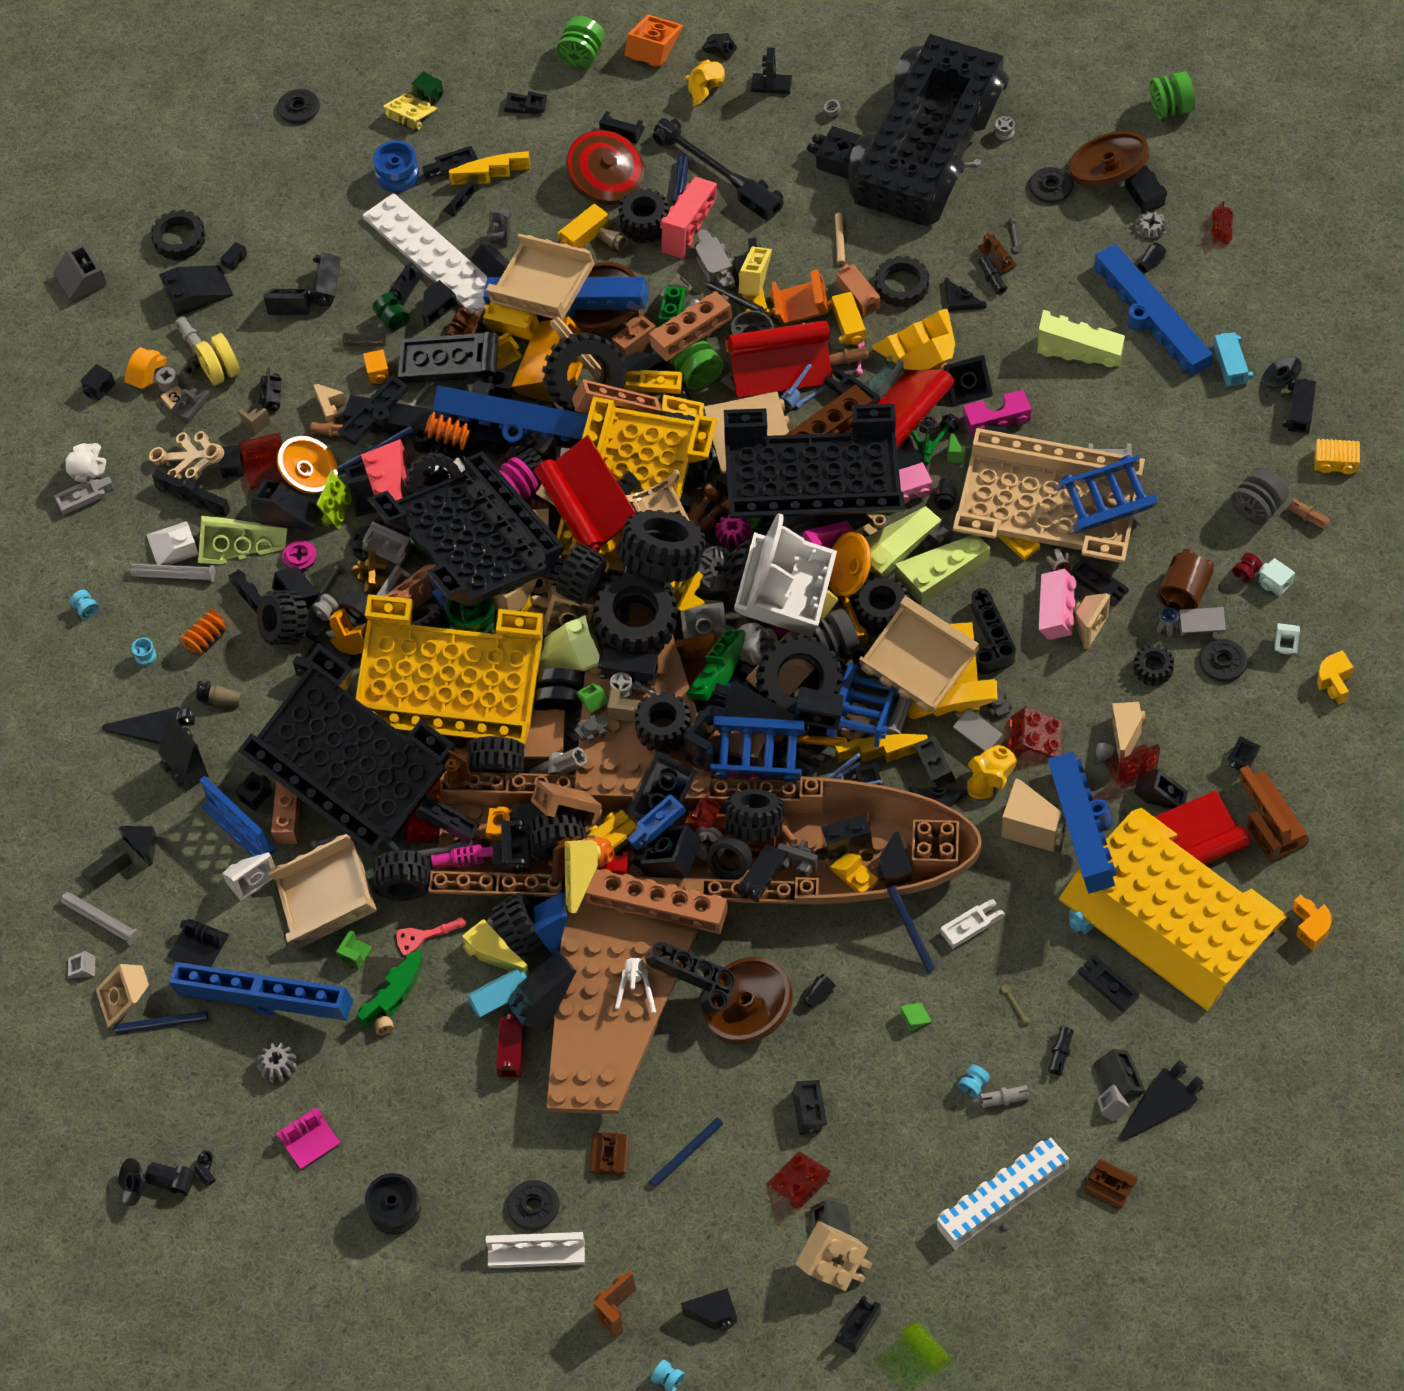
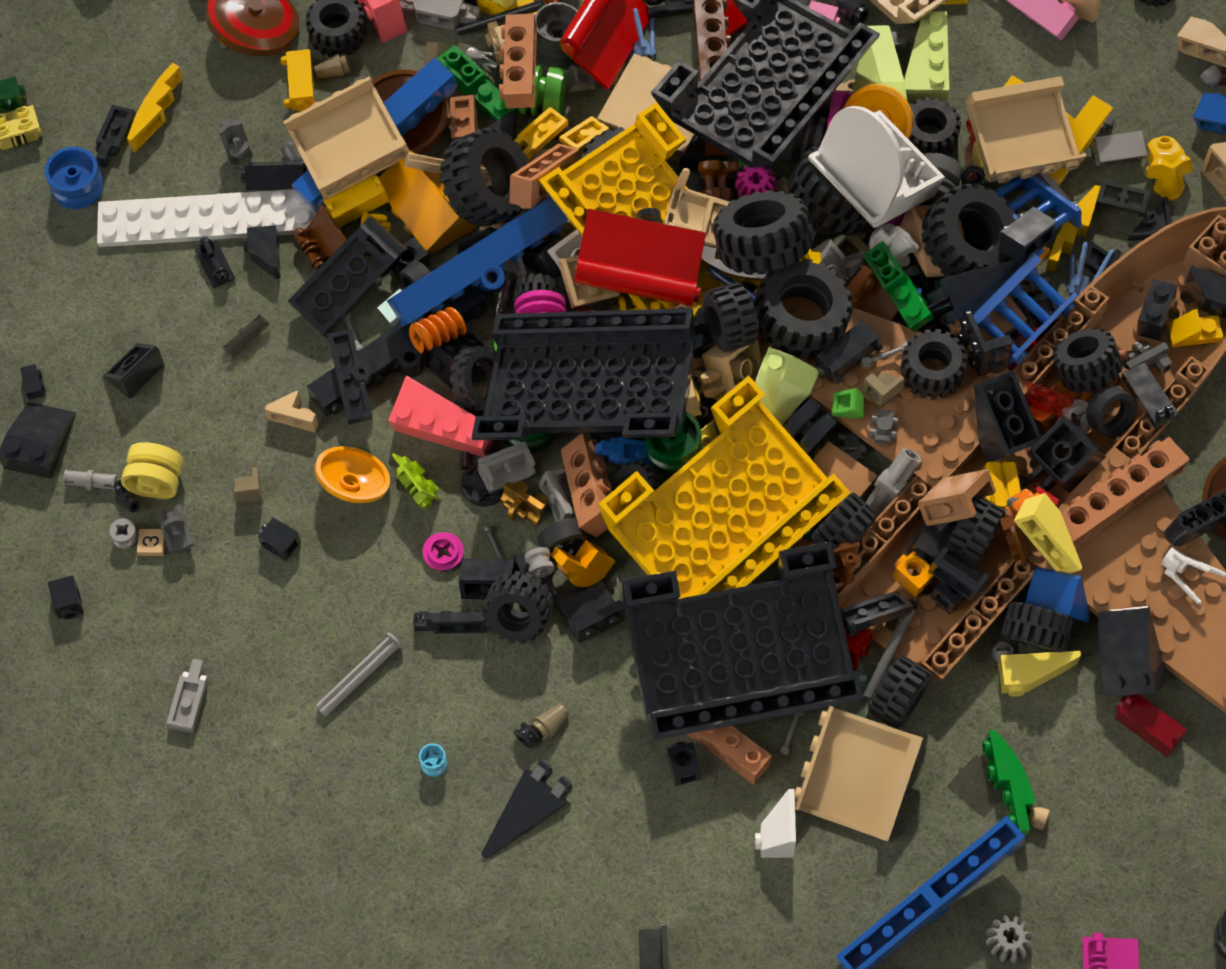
camera: 55 degrees left, 5 degrees up
(84, 604) = (325, 779): medium azure wheel -> none
(85, 463) = (156, 669): white head -> none
(141, 840) = (655, 903): black slope -> none
(142, 367) = (92, 544): light orange brick -> none
(172, 544) = (324, 652): white slope -> none
(181, 756) = (597, 799): black slope -> none
(190, 491) = (282, 597): black hinge -> none
(198, 943) = (815, 927): black hinge -> none
(203, 631) = (459, 692): orange piece -> none
(210, 455) = (241, 569): tan plant -> none
(234, 821) = (711, 800): blue fence -> none
(236, 538) = (366, 600): yellowish green wedge -> none
(261, 459) = (309, 510): clear red bracket -> none
(270, 384) = (219, 449): black hinge -> none
(284, 506) = (383, 525): black slope -> none
(325, 279) = (145, 320): black brick -> none
(326, 429) = (323, 430): medium nougat axle -> none
(353, 951) = (937, 792): bright green panel -> none
(358, 458) = (387, 406): dark blue bar -> none
(359, 489) = (419, 447): black bracket -> none
(376, 367) = (290, 345): light orange brick -> none
(390, 311) = (239, 292): dark green wheel -> none
(421, 936) = (964, 722): coral piece -> none
(461, 198) = (159, 153): black slope -> none
(463, 857) = (920, 627): dark pink hinge -> none
(495, 993) = (1085, 697): medium azure brick -> none
(532, 103) = (108, 31): black slope -> none
(622, 679) = (859, 366): light grey wheel -> none
(656, 822) = (1036, 438): blue hinge -> none
(991, 628) = (996, 61): black beam -> none
(1035, 732) = (1151, 112): clear red bracket -> none

